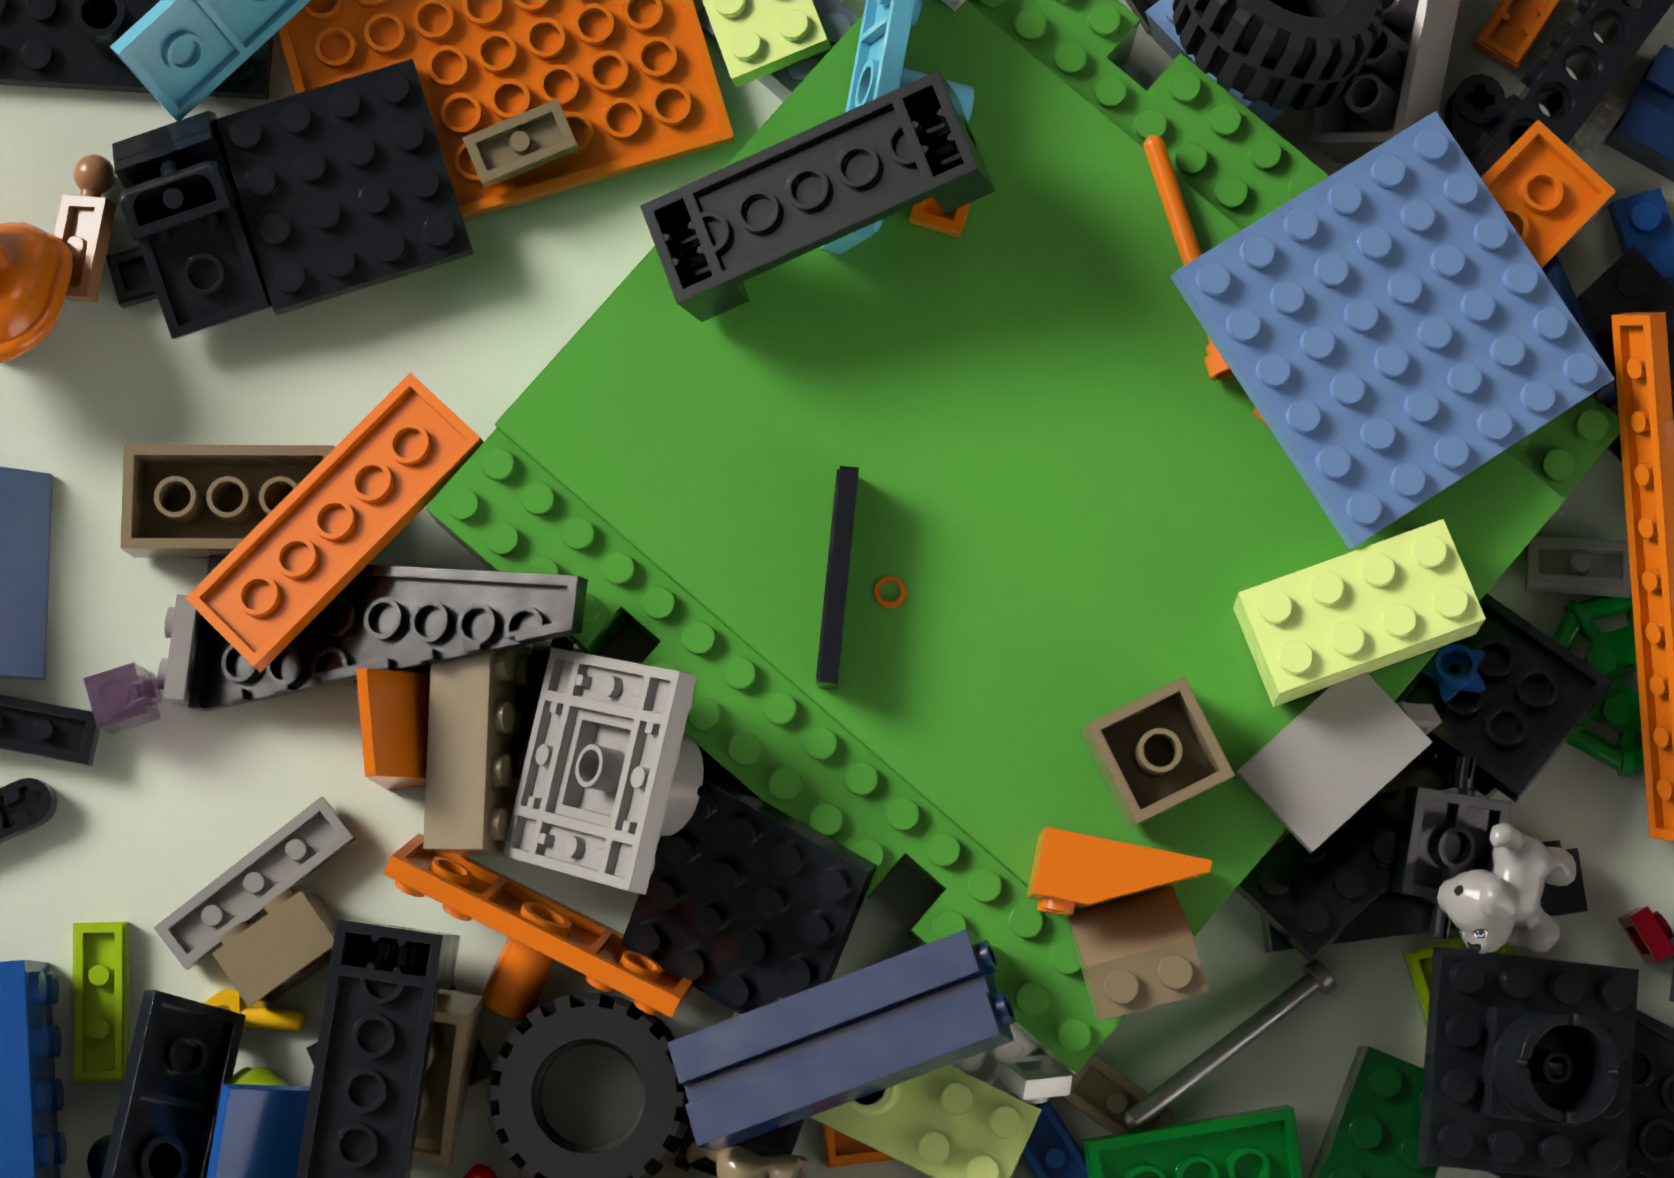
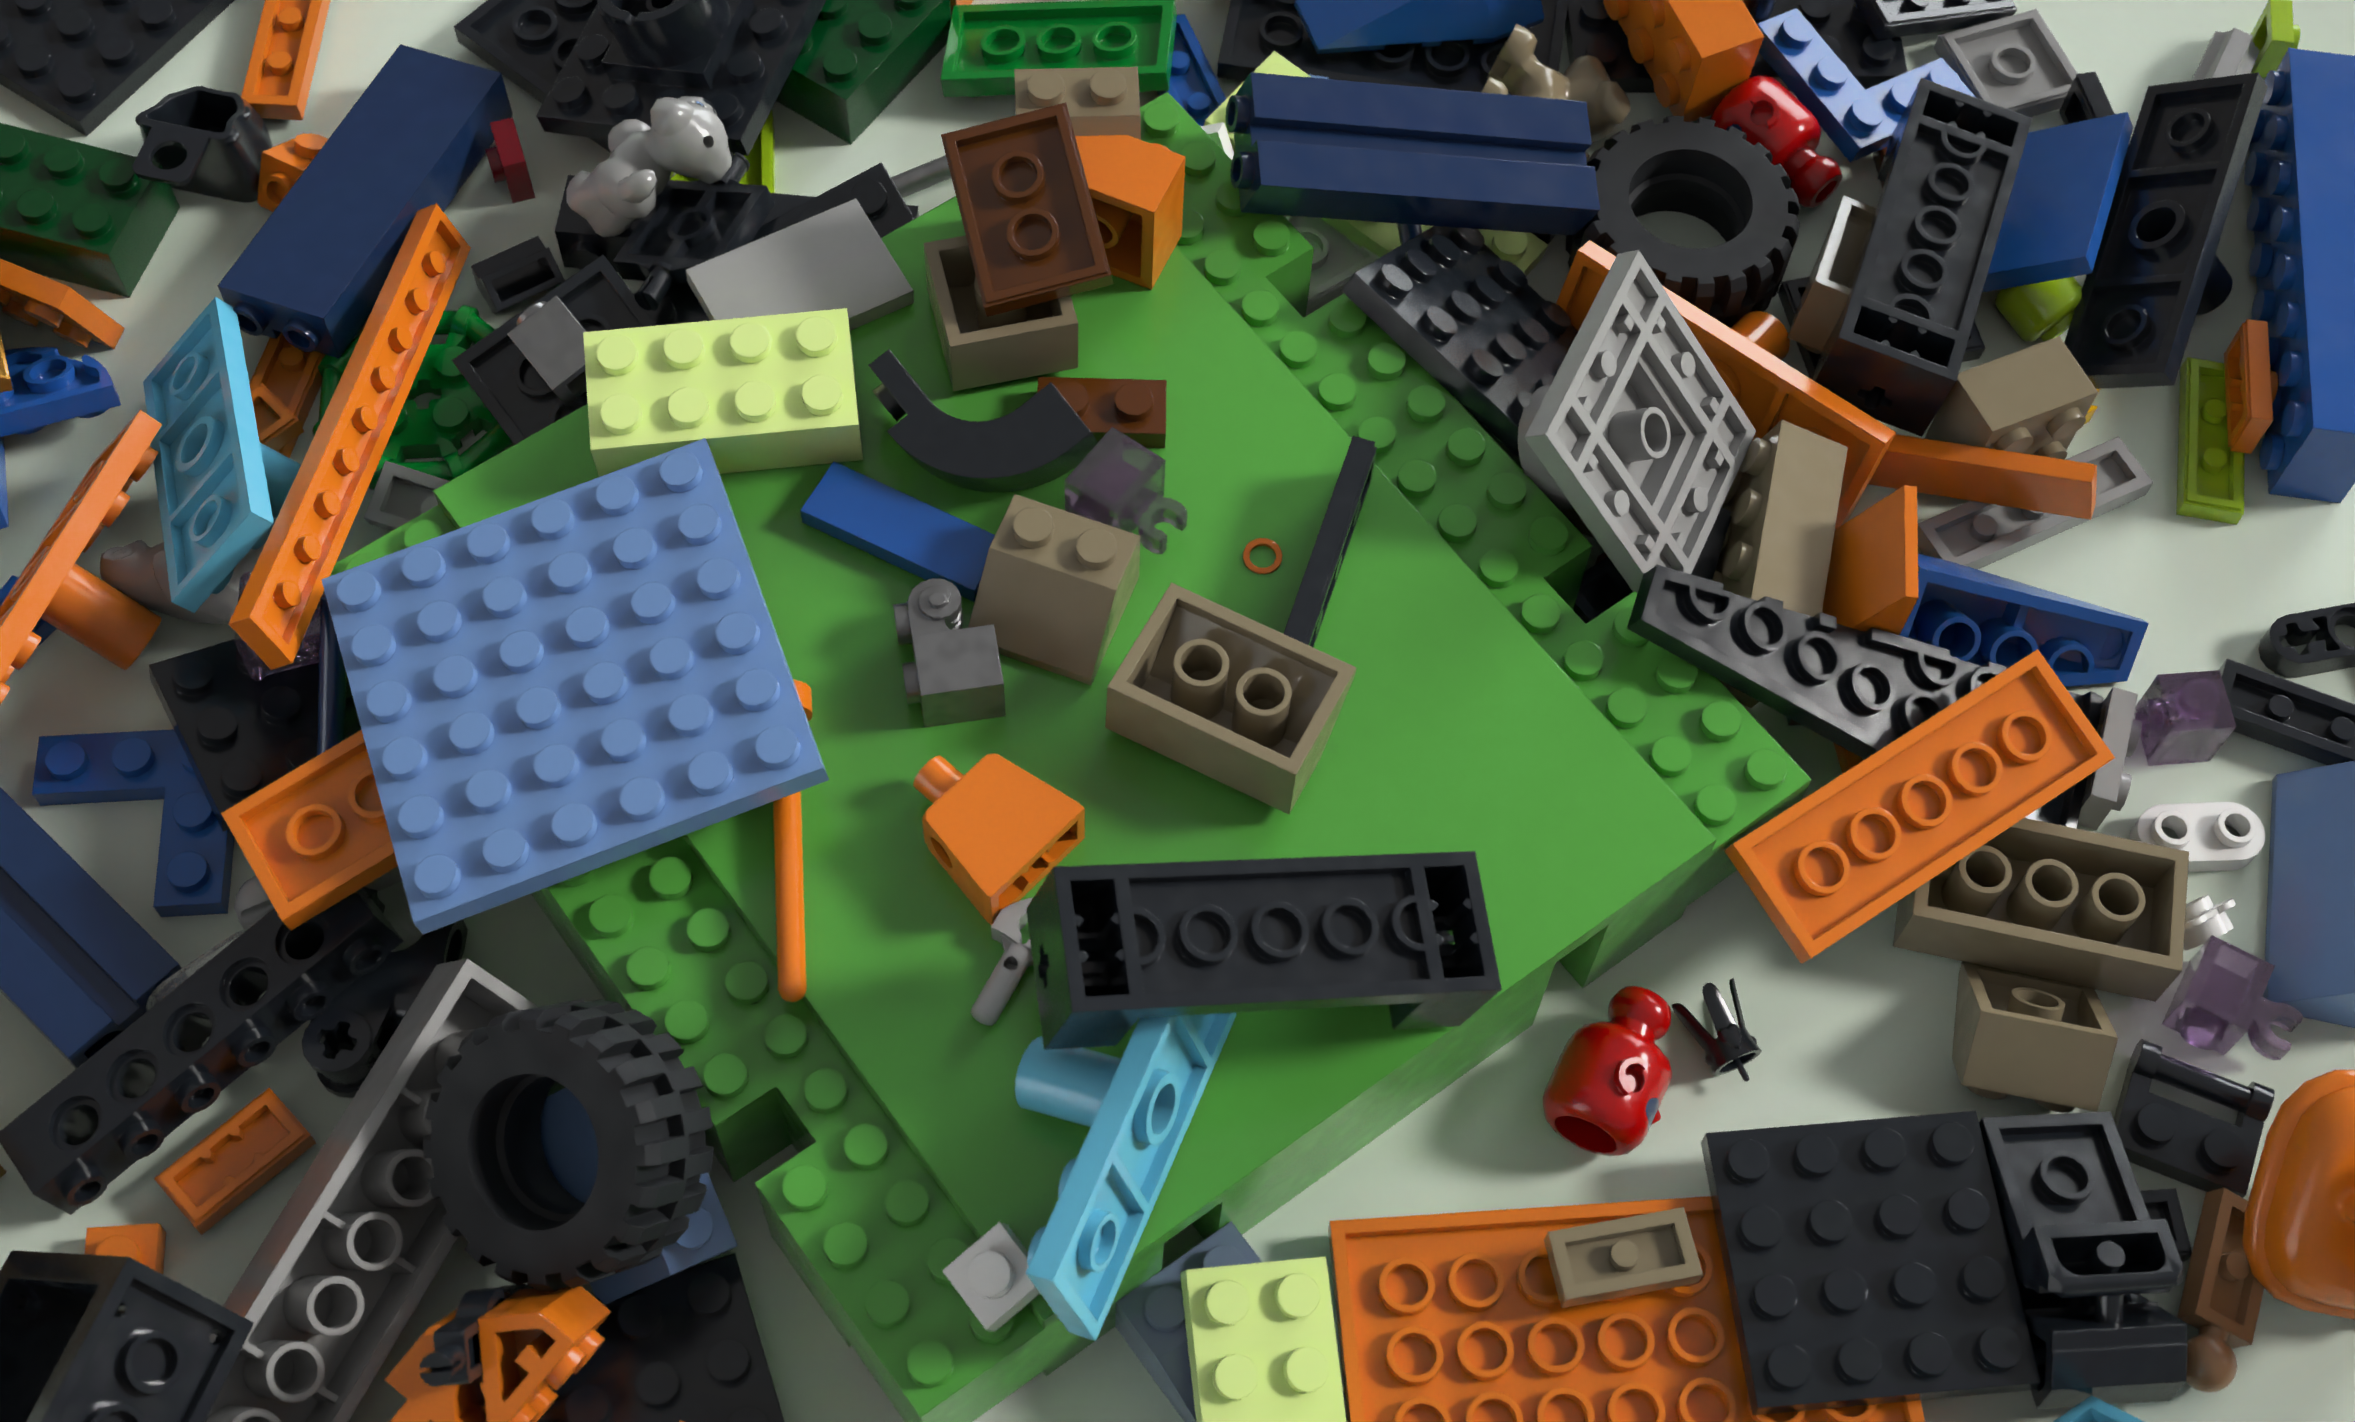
camera: 170 degrees left, 20 degrees down
(71, 1038) = (2249, 386): none -> orange plate
(85, 458) = (2224, 1000): none -> clear purple brick
(102, 522) = (2205, 920): none -> white plate
(105, 606) = (2204, 833): none -> white plate
(110, 347) = (2182, 1139): none -> black plate
(233, 391) = (2031, 1039): none -> dark tan slope
(289, 753) = (2006, 620): none -> blue wedge
(310, 881) = (1989, 476): none -> orange tile
(466, 344) = (1734, 1043): none -> black piece
(546, 286) = (1612, 1076): none -> red piece
(887, 425) = (1228, 697): none -> dark tan slope
(998, 203) = (1011, 966): none -> light grey bar
(1017, 606) = (1124, 489): none -> brick
(1040, 290) = (996, 828): none -> orange torso
(1046, 505) = (1056, 587): none -> dark tan slope
(1050, 691) = (1127, 405): none -> reddish brown plate
(1111, 413) = (954, 668): none -> flat silver brick
(1142, 610) = (996, 455): none -> black arch
(1154, 804) = (1026, 209): none -> reddish brown tile
(1180, 540) = (898, 528): none -> blue tile
(1521, 693) = (553, 346): none -> flat silver brick
(1596, 814) = (516, 274): none -> black piece

